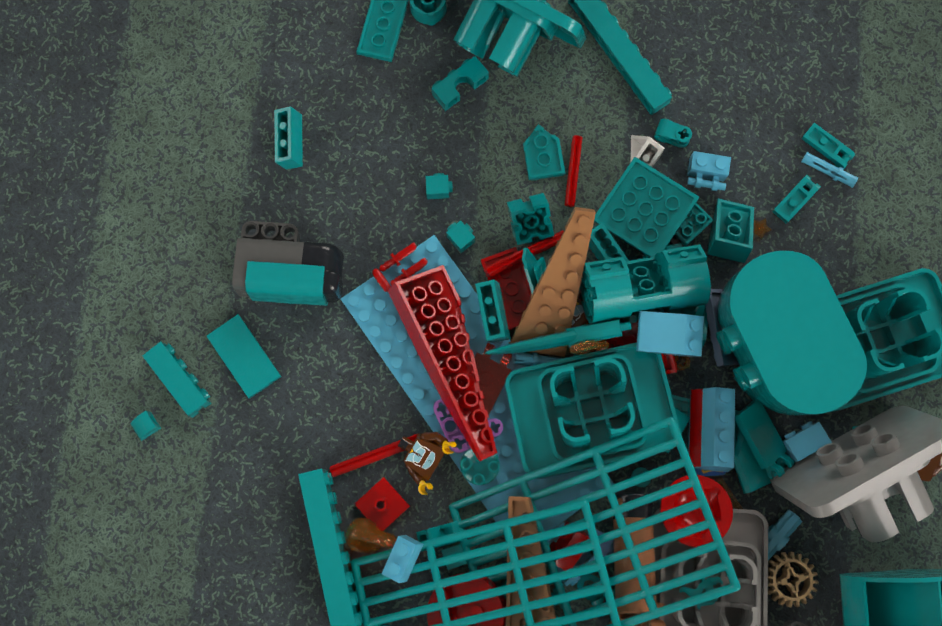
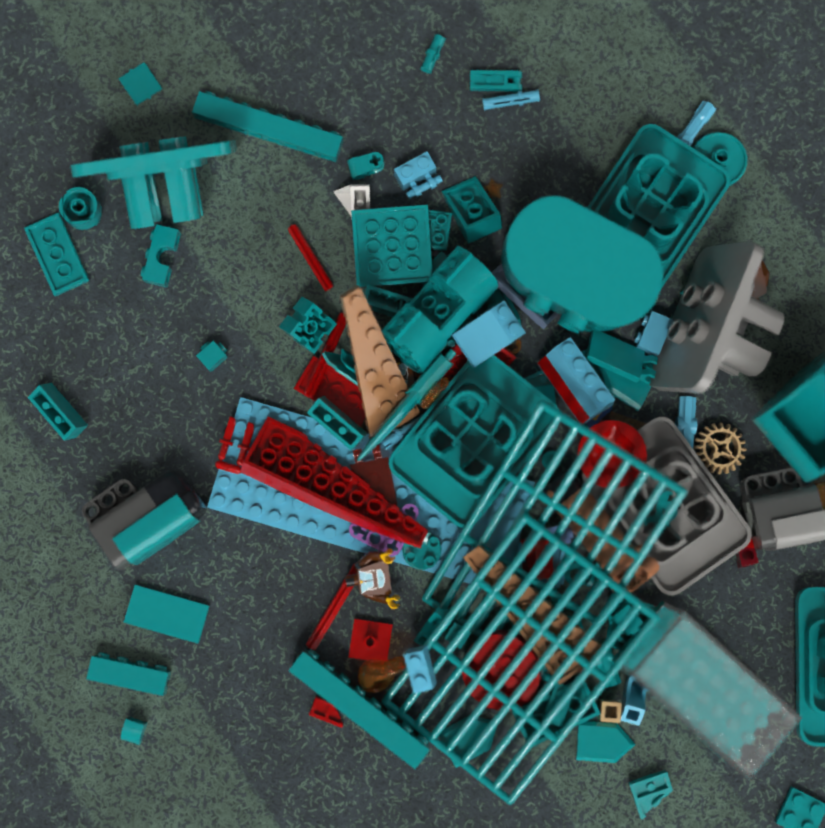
camera: 45 degrees left, 5 degrees up
(301, 532) = (325, 711): none -> red tile
(460, 235) = (262, 381): teal brick -> none
(543, 155) = (275, 263): teal tile -> none
(793, 89) = (432, 53): none -> teal pin
(796, 199) = (503, 144): teal plate -> none

